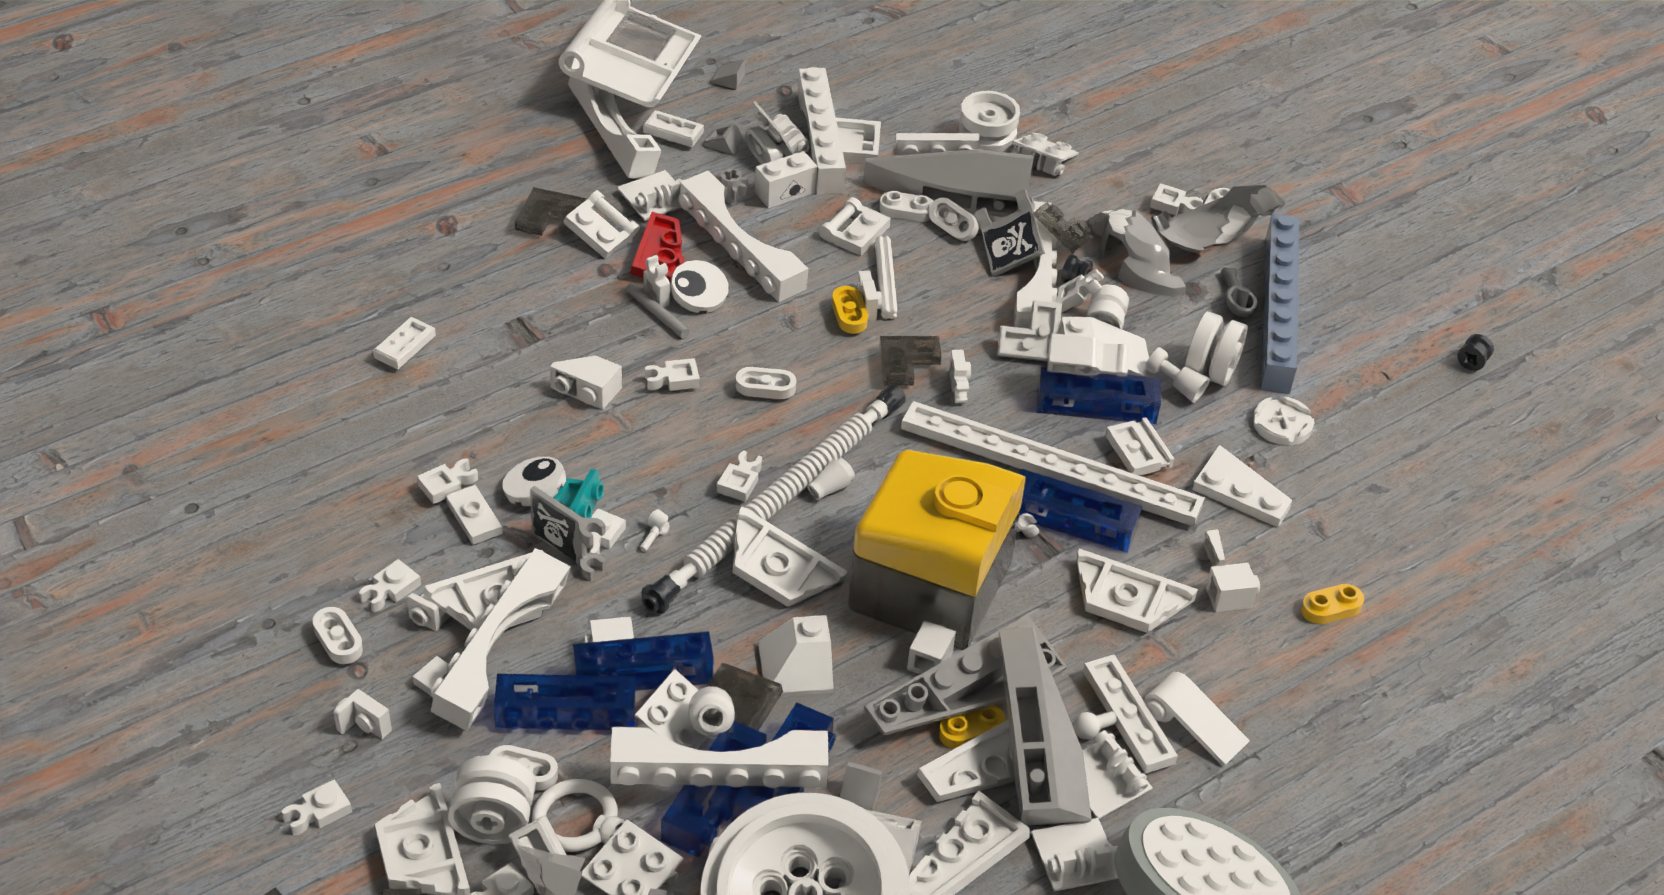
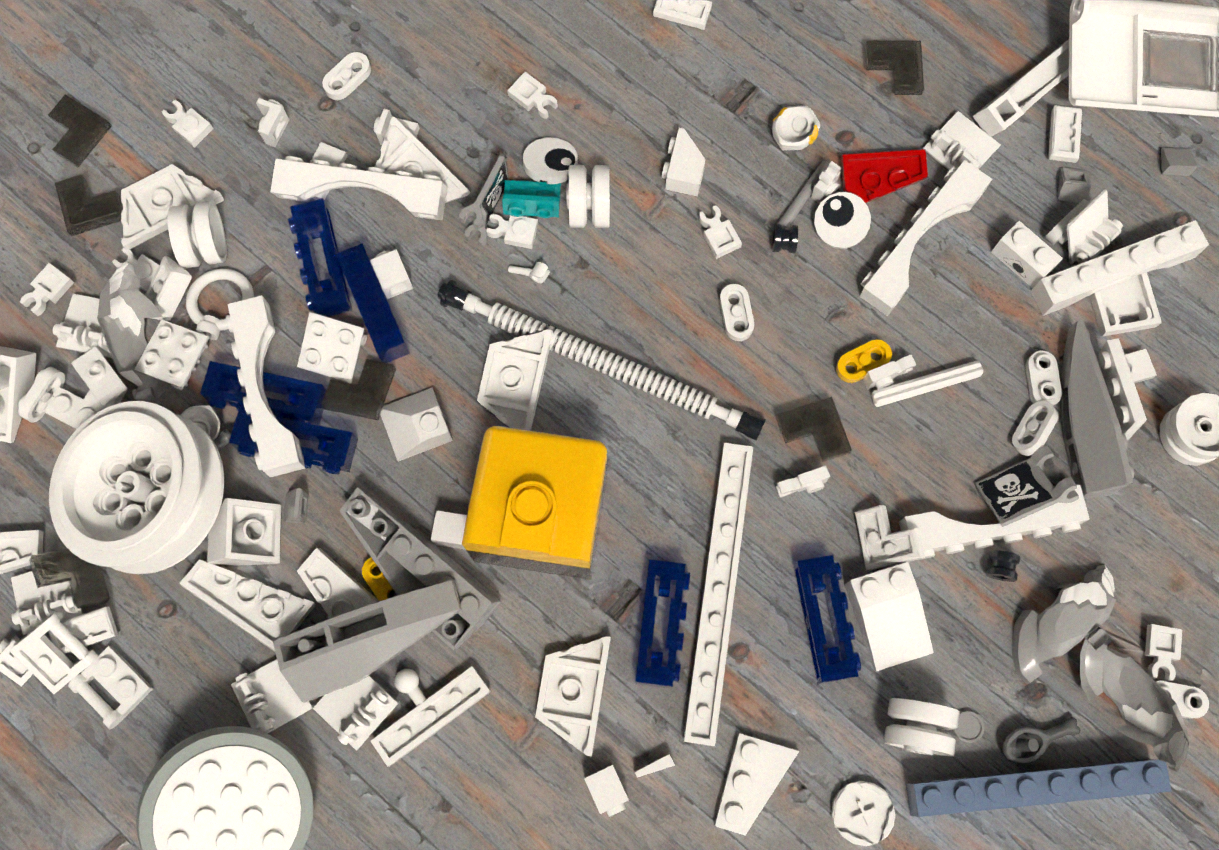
camera: 80 degrees right, 30 degrees up
(393, 583) = (414, 97): white plate -> none
(474, 514) = (505, 129): white plate -> none
(534, 761) = (252, 250): white plate -> none
(586, 290) = (795, 127): none -> white hair
(598, 231) = (885, 109): white plate -> none
(600, 442) = (588, 196): none -> white wheel
(701, 329) = (785, 238): none -> black wheel
(704, 718) = (322, 368): white head -> none
(733, 184) = (998, 208): light grey gear -> none
(741, 479) = (606, 322): white plate -> none
(831, 479) = (633, 399): white cone -> none
(860, 233) = (988, 346): white plate -> none
(1025, 527) = (627, 578): white hand -> none
(1050, 153) = (1190, 497): white hinge -> none
(1071, 234) = (1044, 541): clear smoke plate -> none
(1075, 291) = (970, 570): white plate -> none
(1086, 356) = (846, 596): white piece -> none
(1109, 305) = (955, 606): white wheel -> none
(1139, 447) = (769, 672): white plate -> none
(1186, 381) = (875, 705): white piece -> none
(1198, 714) = (440, 777): white door -> none

